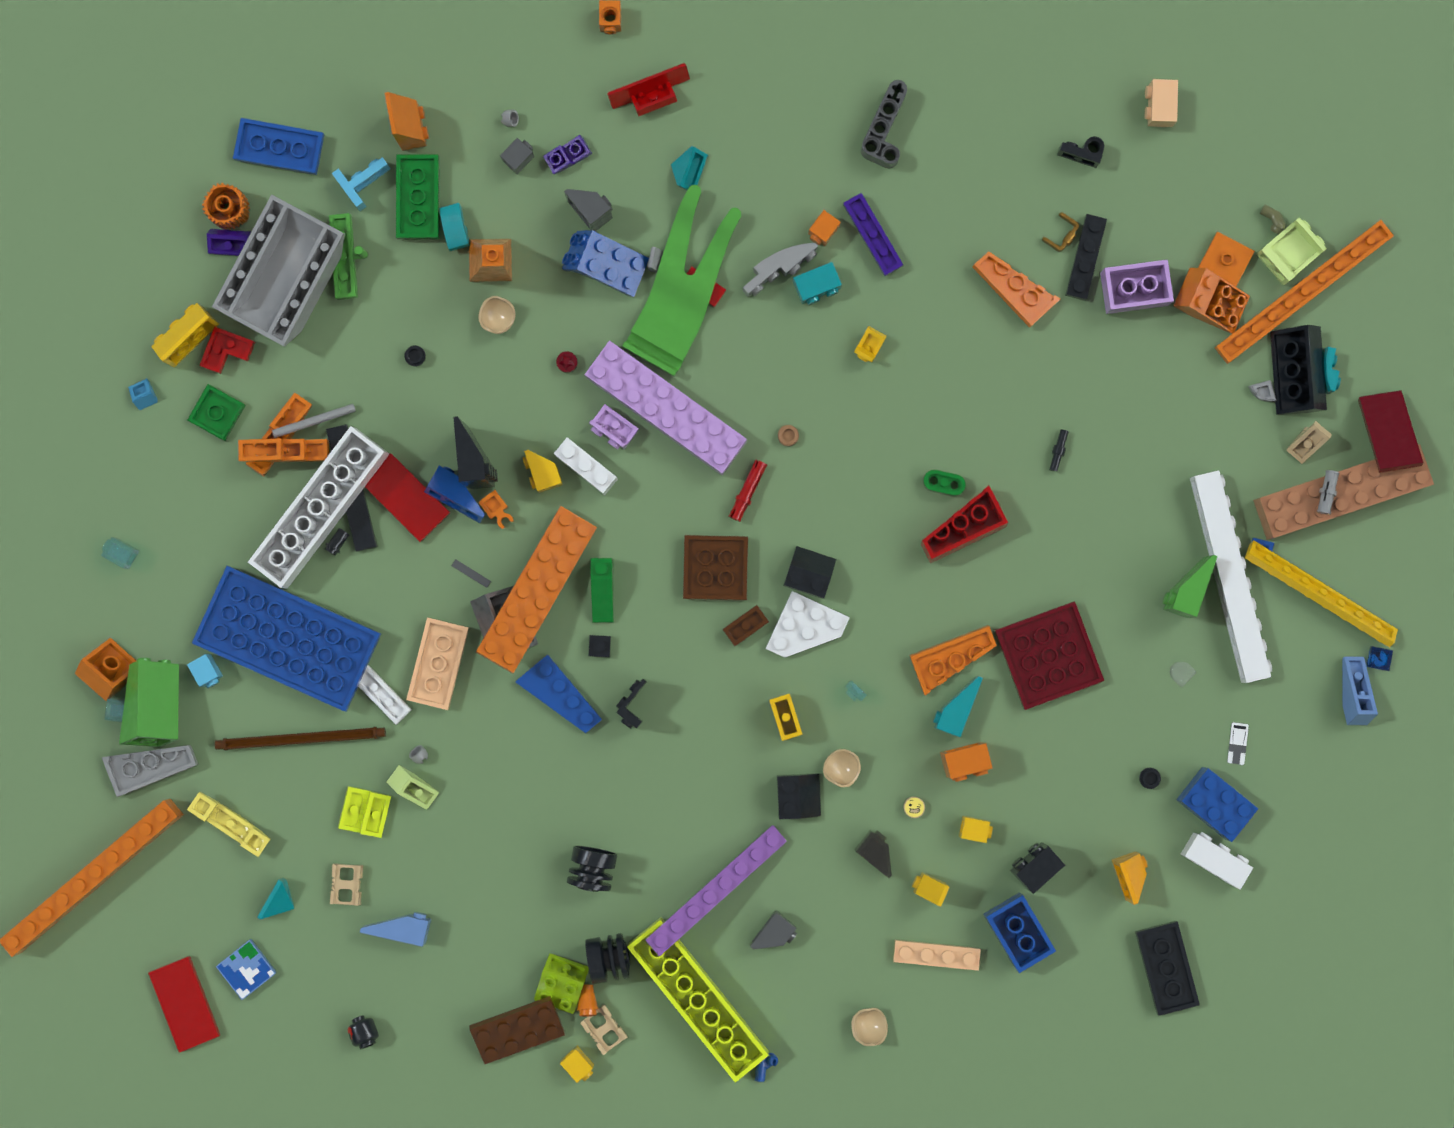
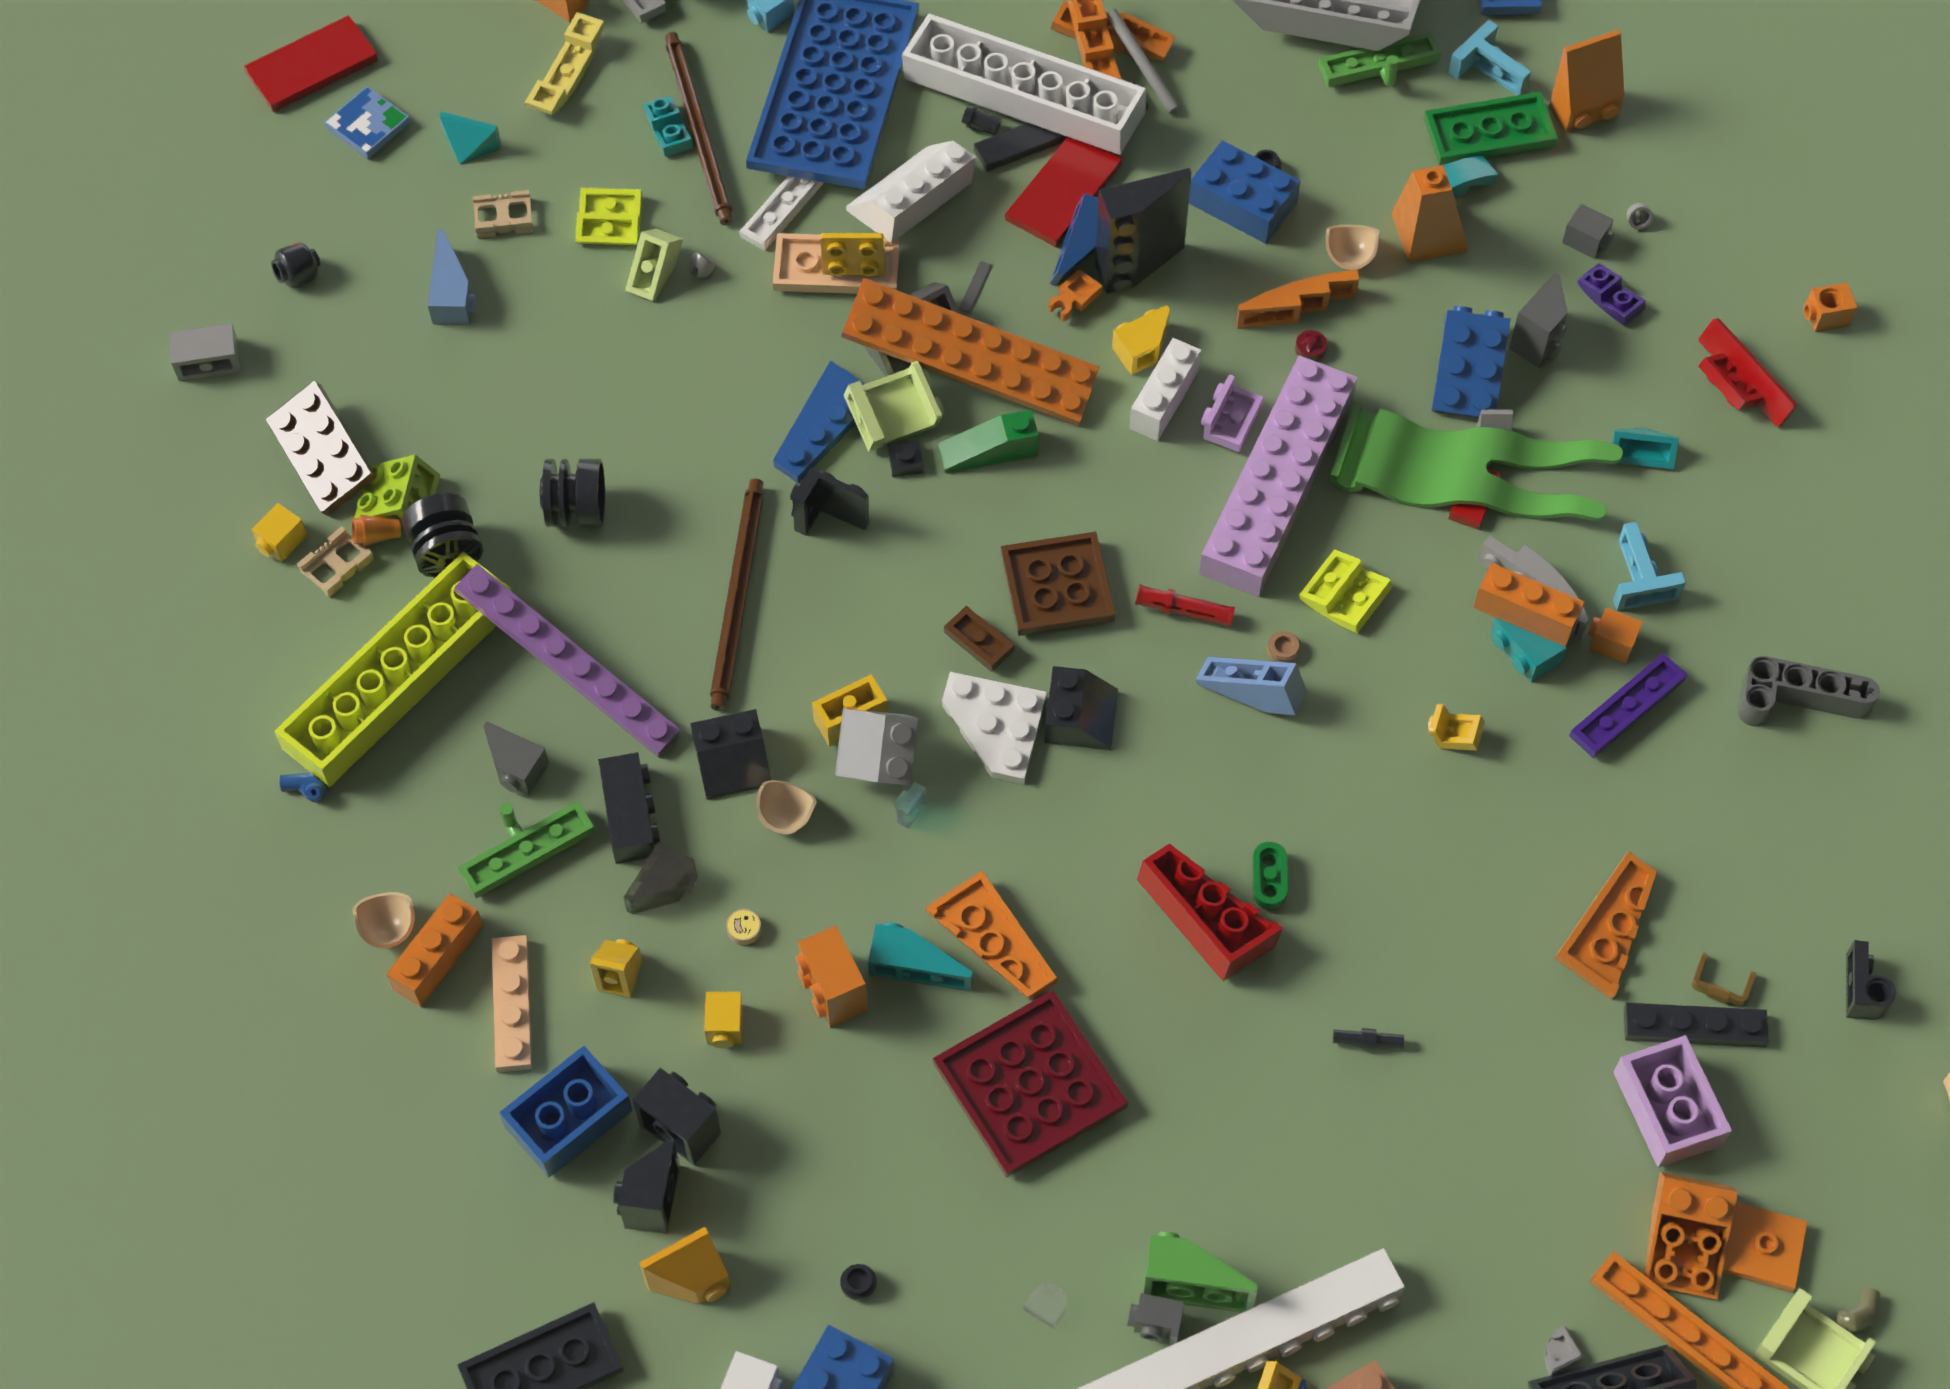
camera: 80 degrees right, 25 degrees down
(294, 759) = (667, 126): none -> teal slope
(389, 601) = (914, 189): none -> white slope
(422, 1100) = (204, 351): none -> light grey brick
(438, 376) = (1244, 191): none -> blue brick
(439, 651) = (853, 254): none -> yellow bracket
(533, 369) = (1288, 301): none -> orange slope
(564, 647) = (894, 406): none -> yellowish green panel
(680, 772) = (736, 595): none -> reddish brown piece
(755, 386) = (1345, 591): none -> neon yellow slope
(782, 197) = (1646, 585): none -> medium azure bracket
(804, 278) = (1528, 604): none -> orange brick
(813, 461) = (1257, 683): none -> medium blue slope
(818, 705) = (876, 746): none -> light grey slope
(822, 865) = (628, 807): none -> black brick
(836, 933) = (525, 847): none -> bright green plate
(897, 997) = (435, 950): none -> orange brick
(1081, 892) = (649, 1190): none -> black slope
(1207, 614) = (1156, 1318): none -> dark grey brick

